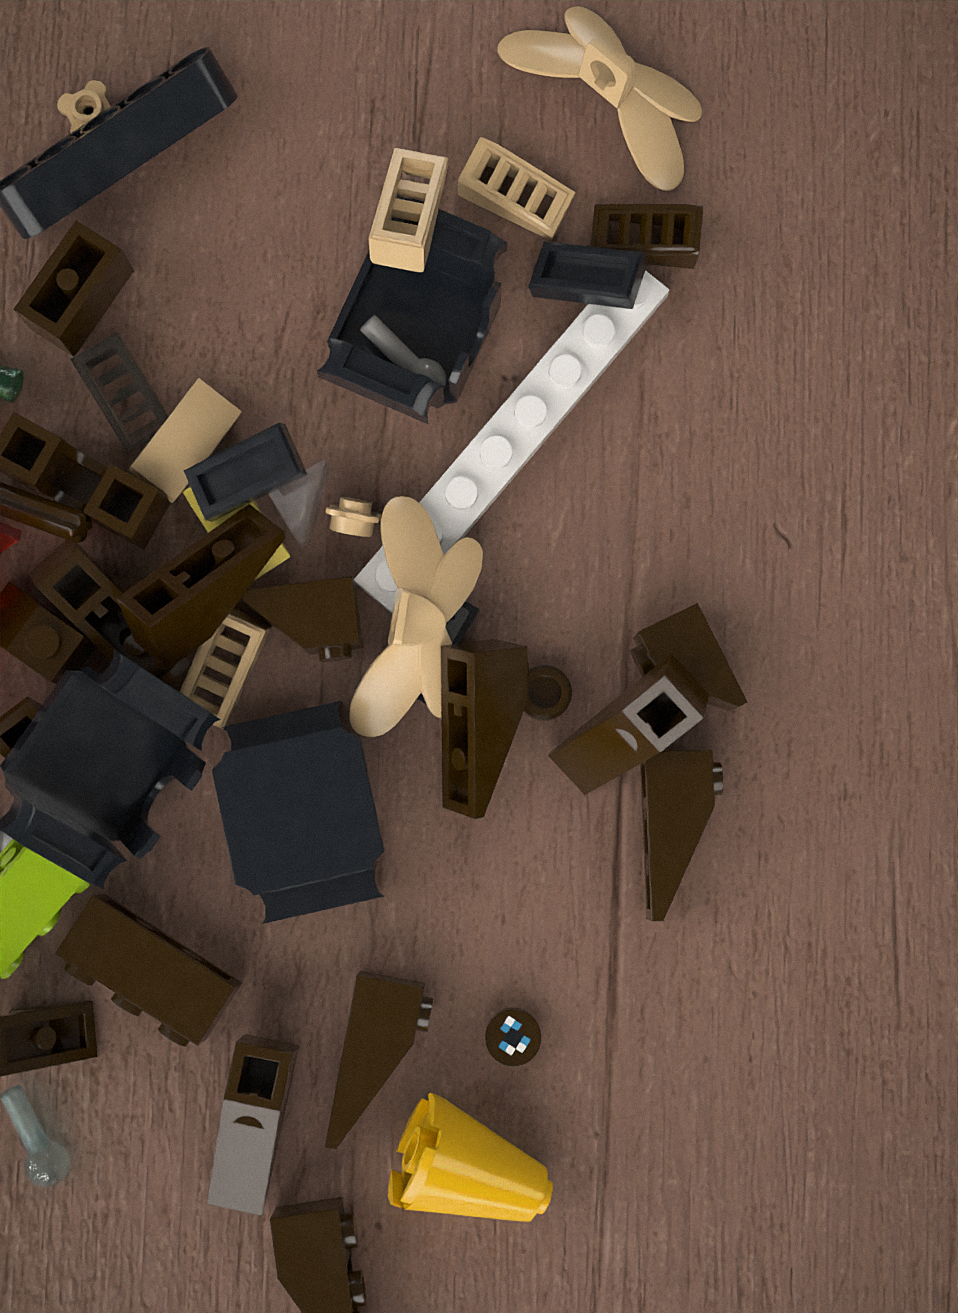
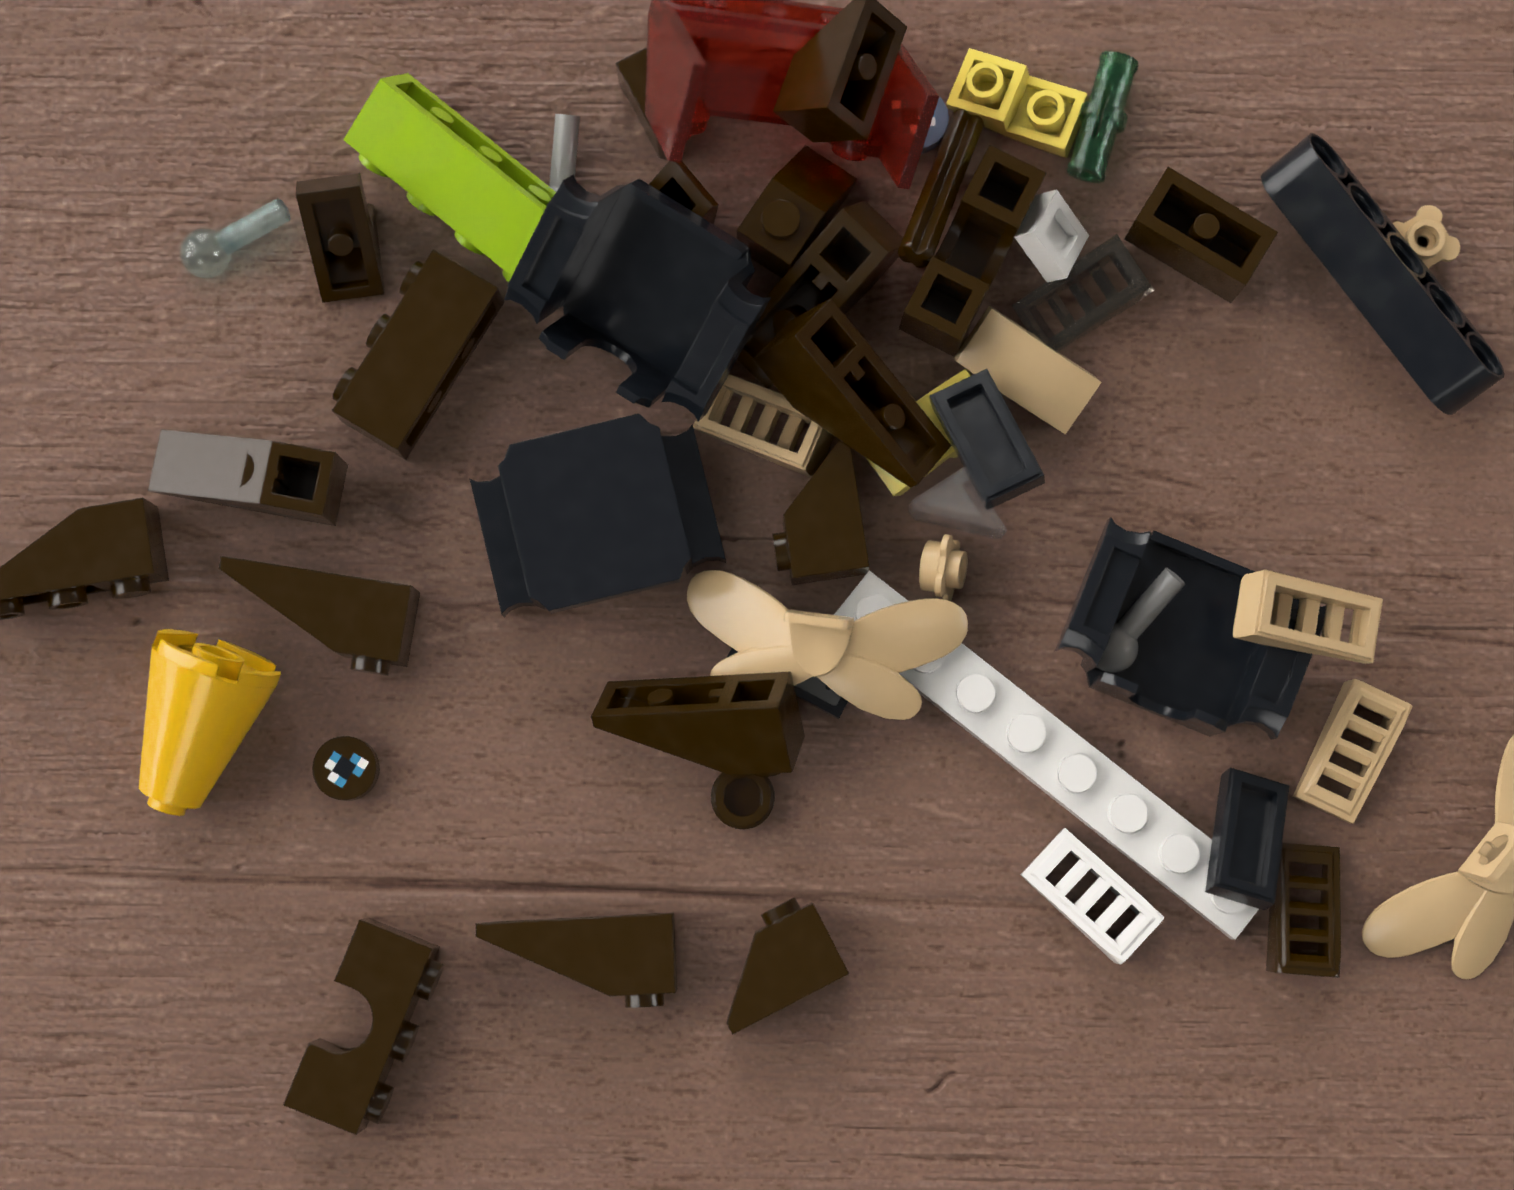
camera: 90 degrees right, 0 degrees up
(70, 414) = (1051, 236): none -> white plate
(633, 726) = (701, 899): dark brown slope -> none
(665, 370) = (1135, 932): none -> white slope
(784, 1036) = (349, 1083): none -> dark brown arch

